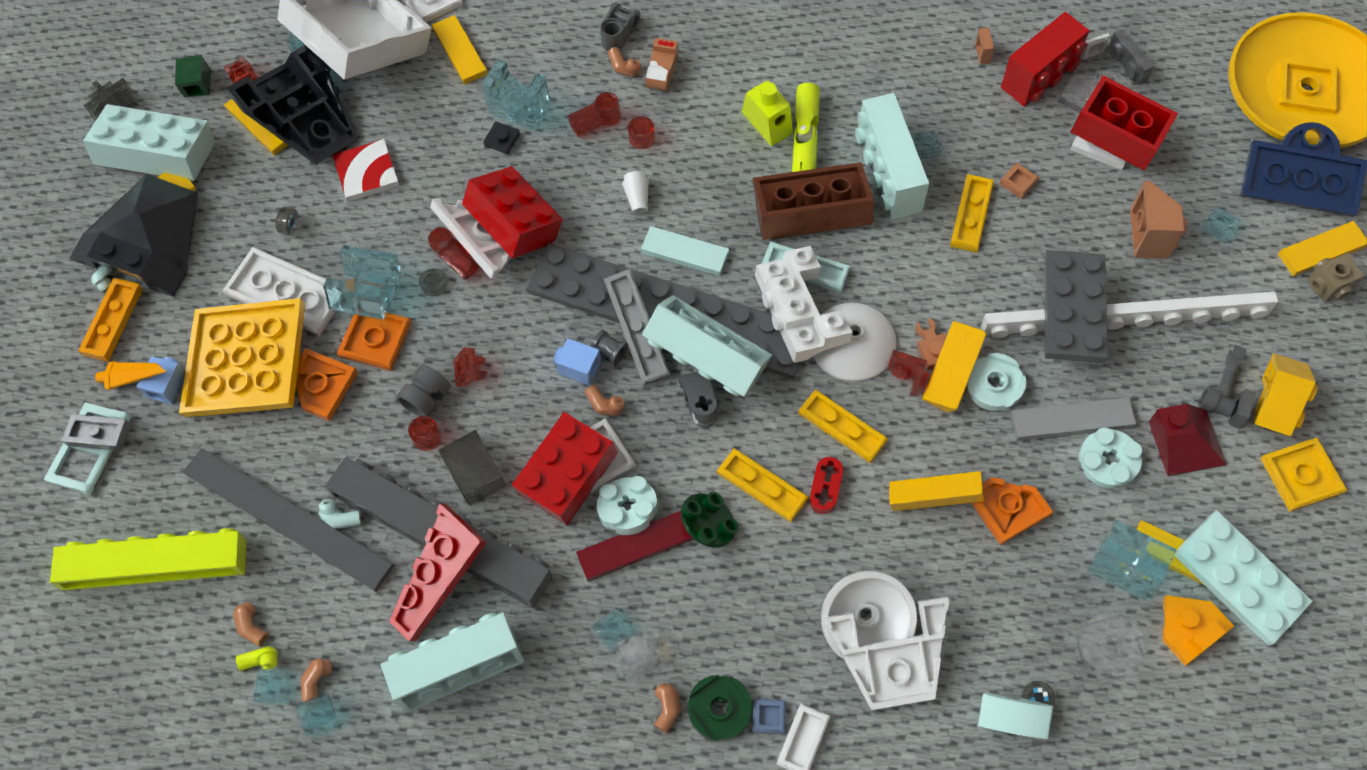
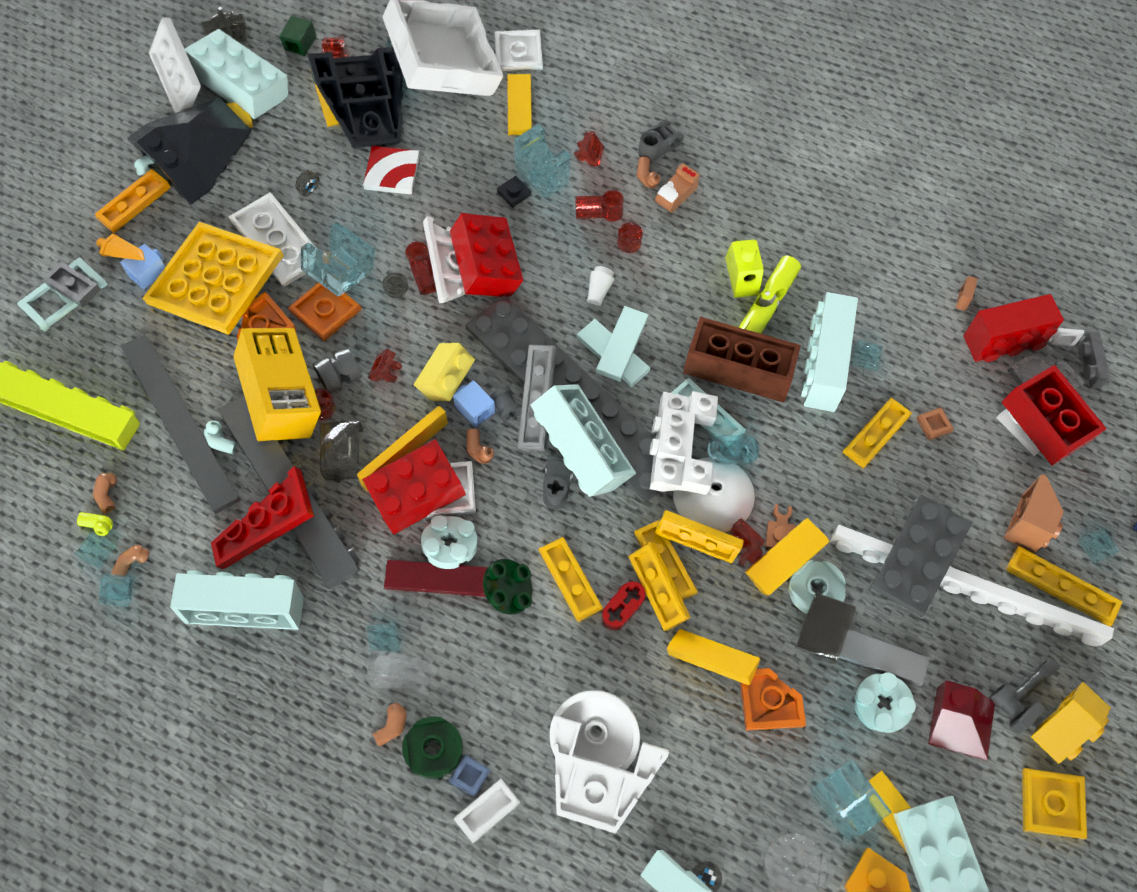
camera: 20 degrees right, 0 degrees up
(80, 164) = (174, 67): none -> white tile
(372, 432) = (276, 384): none -> yellow piece
(533, 344) = (444, 372): none -> light yellow brick
(533, 432) = (407, 443): none -> yellow tile
(555, 62) = (590, 149): none -> clear red tile
(690, 237) = (622, 343): none -> light aqua tile
(846, 292) = (731, 449): none -> clear light blue plate
(850, 451) = (659, 586): none -> yellow tile
(863, 386) = (699, 536): none -> yellow tile
(1025, 414) = (825, 627): none -> clear smoke piece
(1209, 275) = (1064, 586): none -> yellow tile

